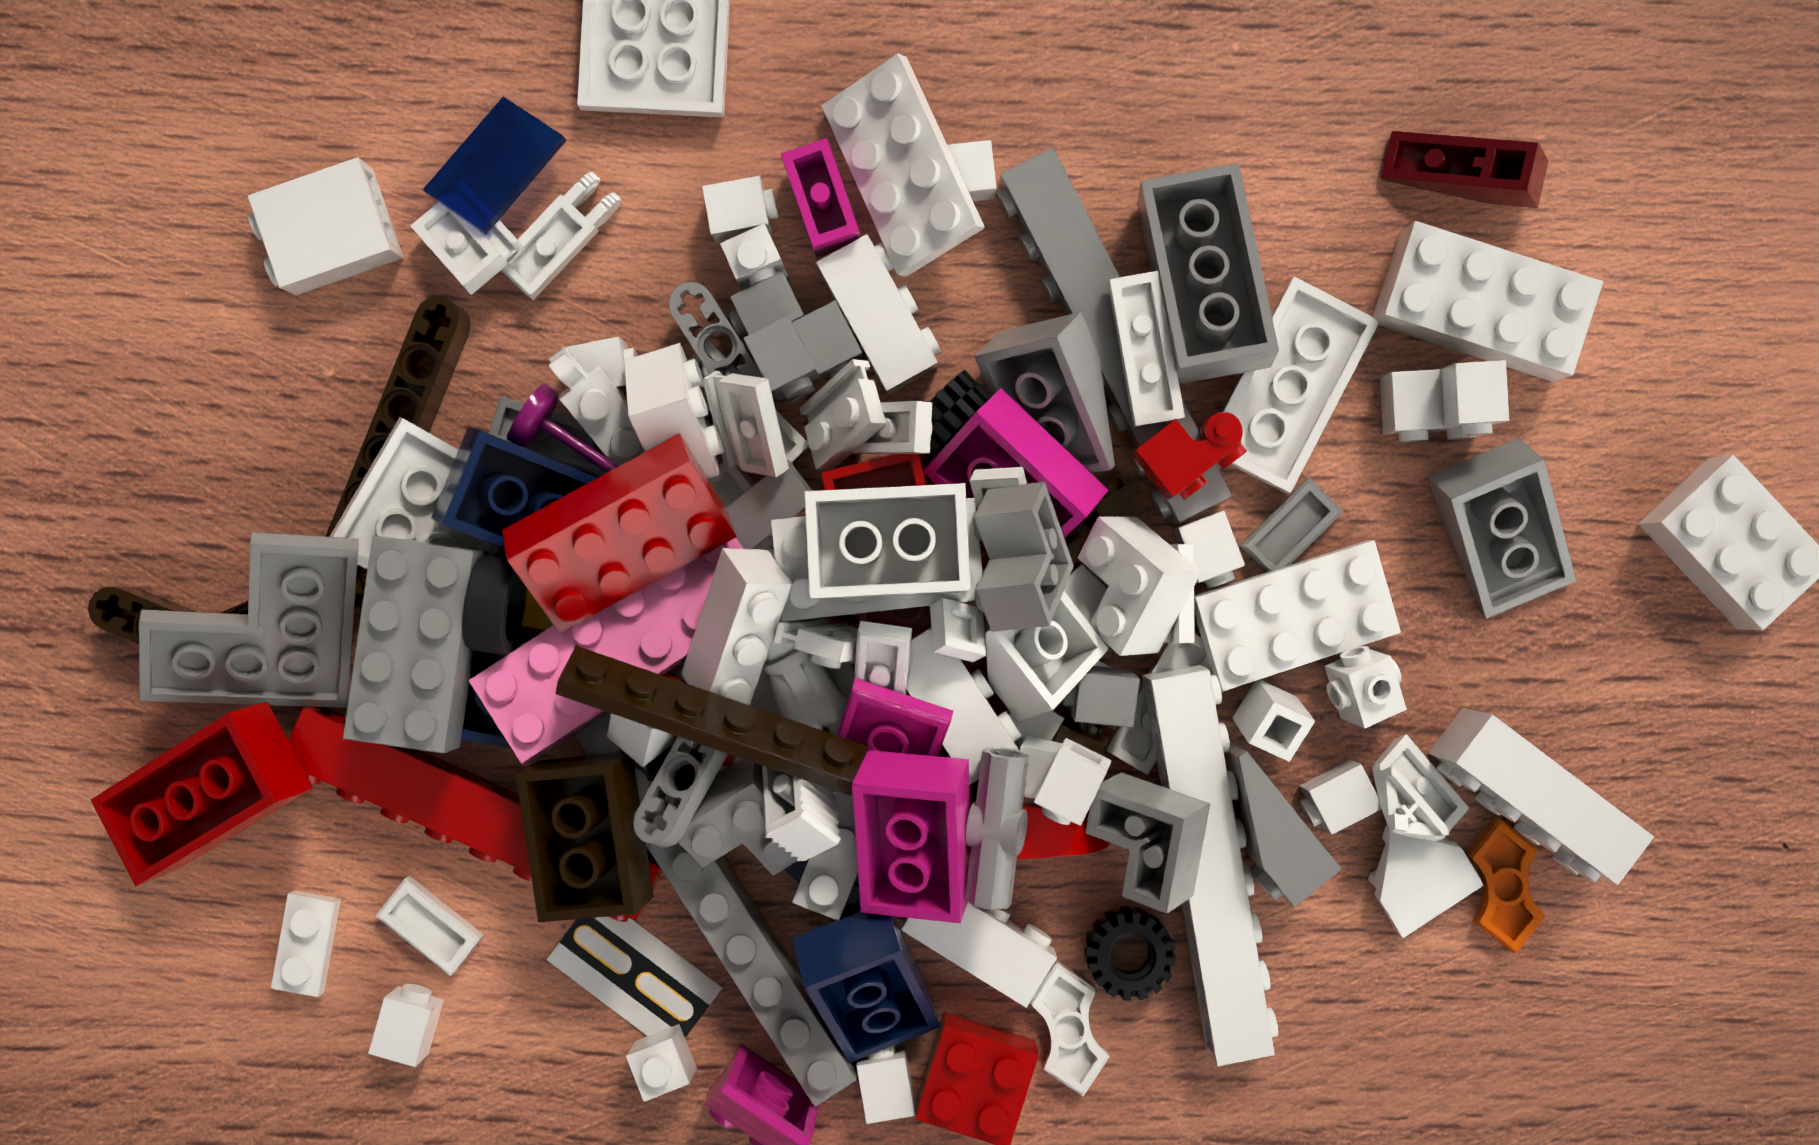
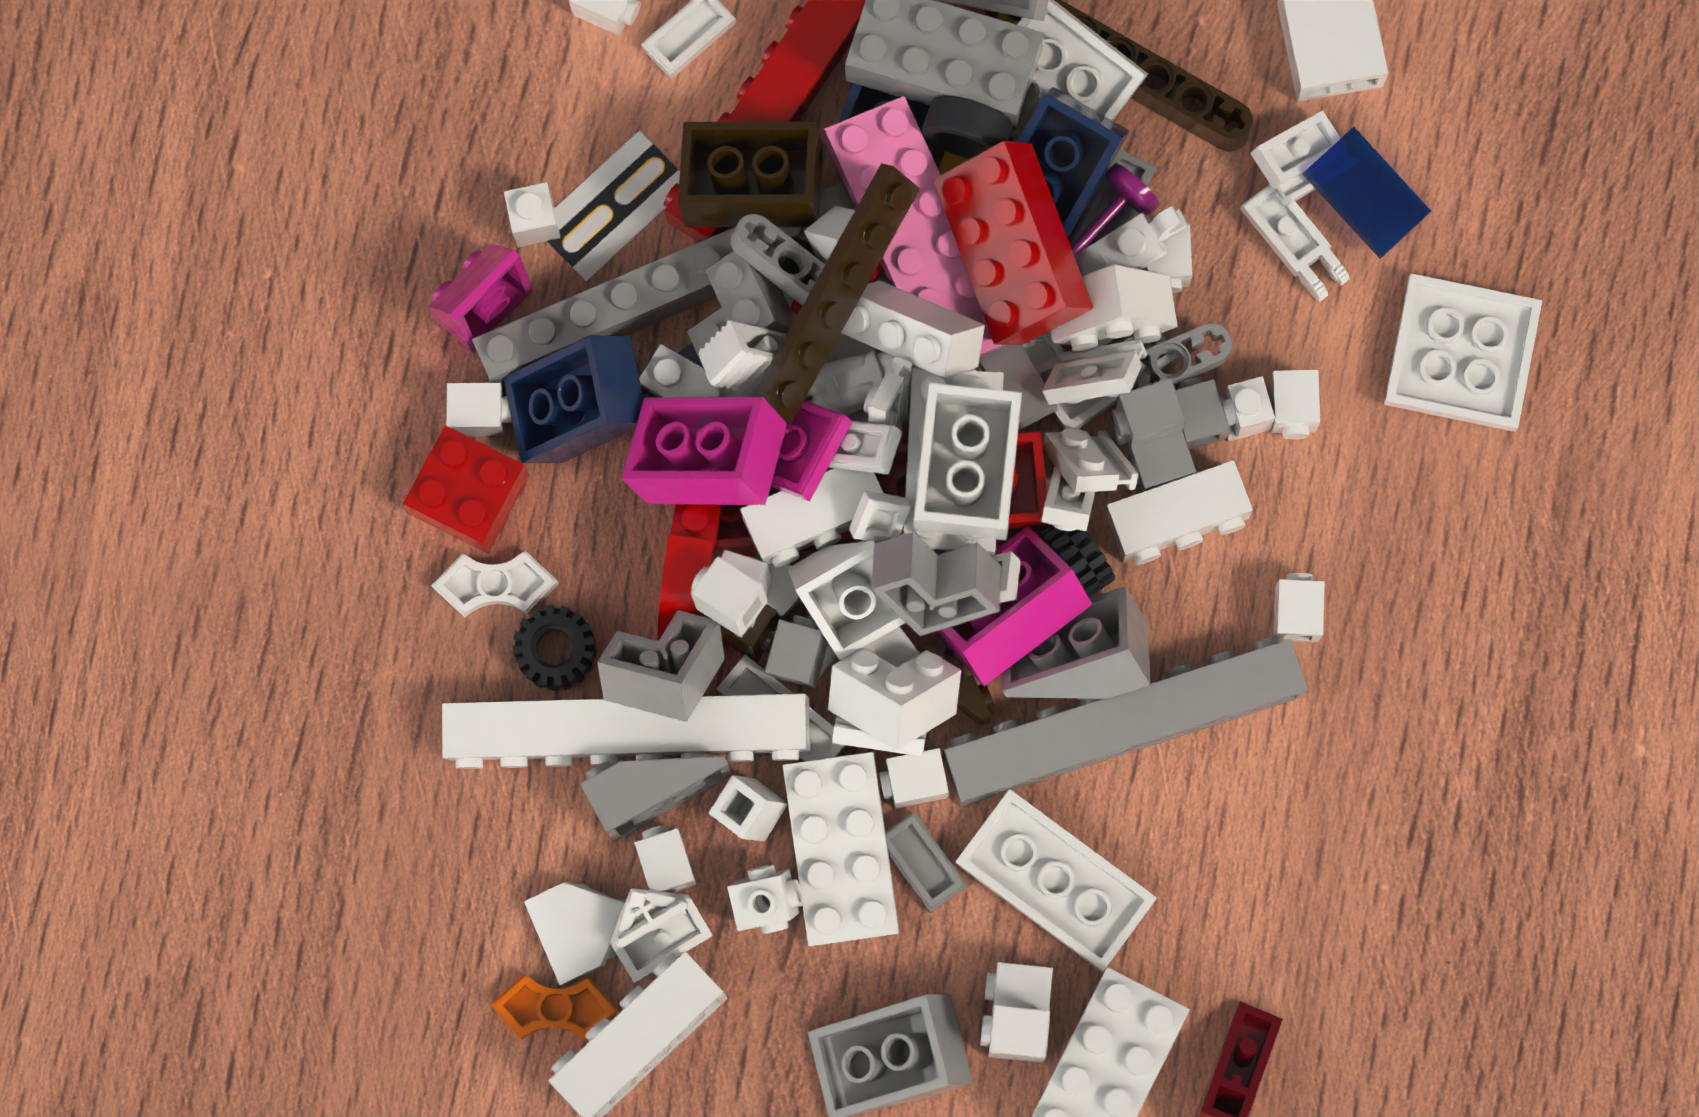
camera: 100 degrees right, 10 degrees down
(821, 197) = (1292, 475): dark pink brick -> none
(902, 166) = (1311, 552): white plate -> none
(990, 949) = (588, 518): white brick -> none
(996, 828) = (699, 523): light grey piece -> none
(1146, 349) = (1107, 739): white plate -> none
(1179, 462) = (998, 752): red brick -> none
(1209, 272) = (1169, 809): light grey brick -> none

